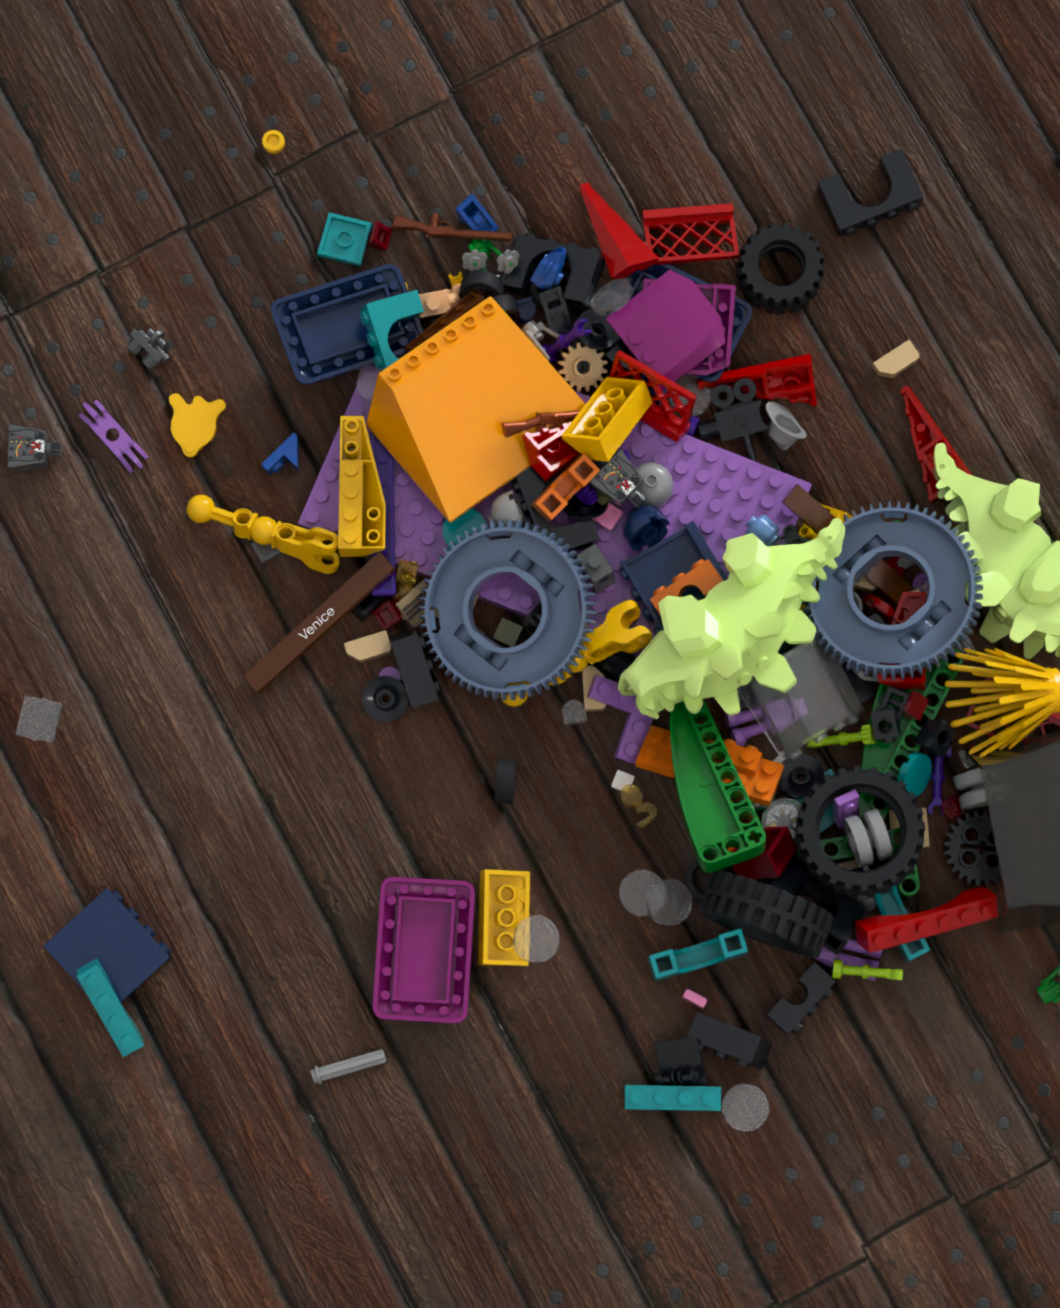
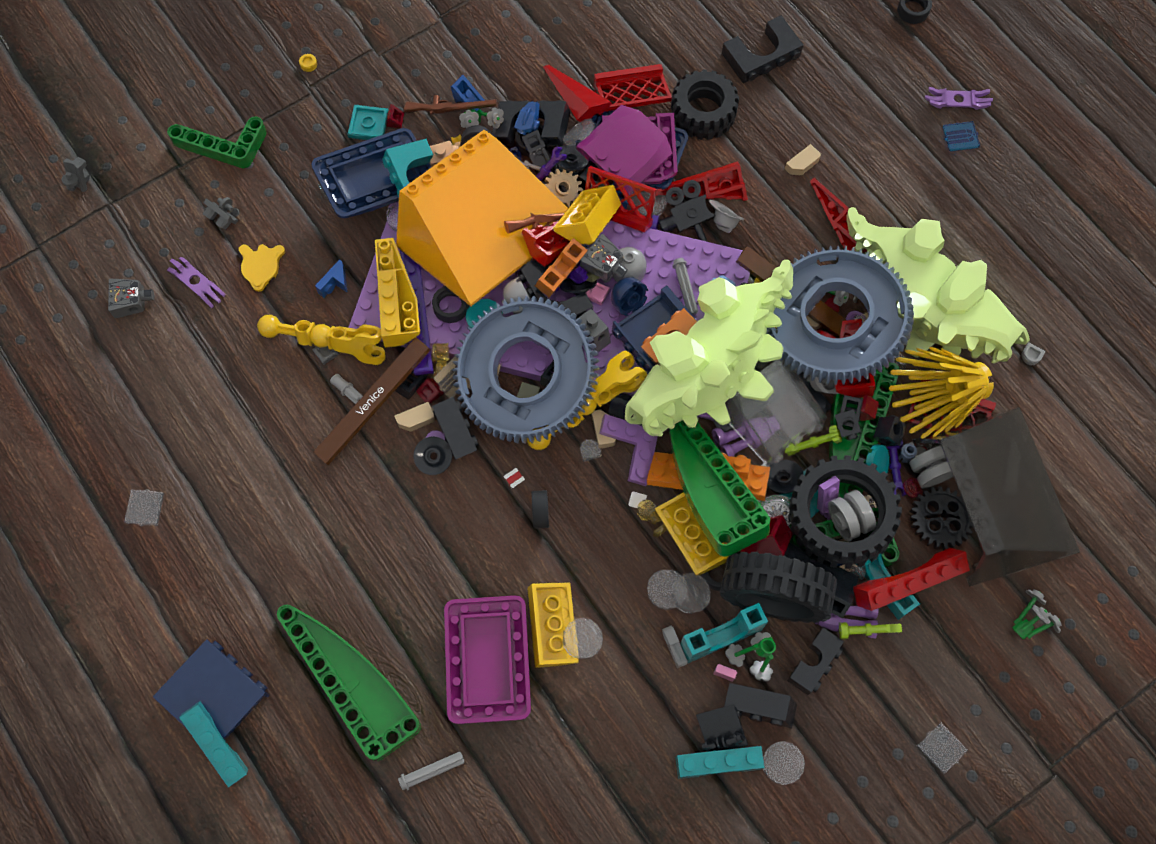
camera: 10 degrees left, 10 degrees down
(153, 252) = (199, 143): none -> green beam
(283, 965) = (367, 690): none -> green beam
(289, 601) = (346, 388): none -> light grey axle
(412, 523) = (448, 317): none -> black tyre
(479, 735) = (514, 477): none -> sticker
(641, 961) = (674, 646): none -> light grey piece
(669, 828) = (688, 535): none -> yellow slope
(717, 519) = (685, 285): none -> light grey axle
(742, 977) = (763, 646): none -> plant
(929, 1113) = (942, 748): none -> clear piece
(956, 759) = (904, 453): none -> sand blue pin

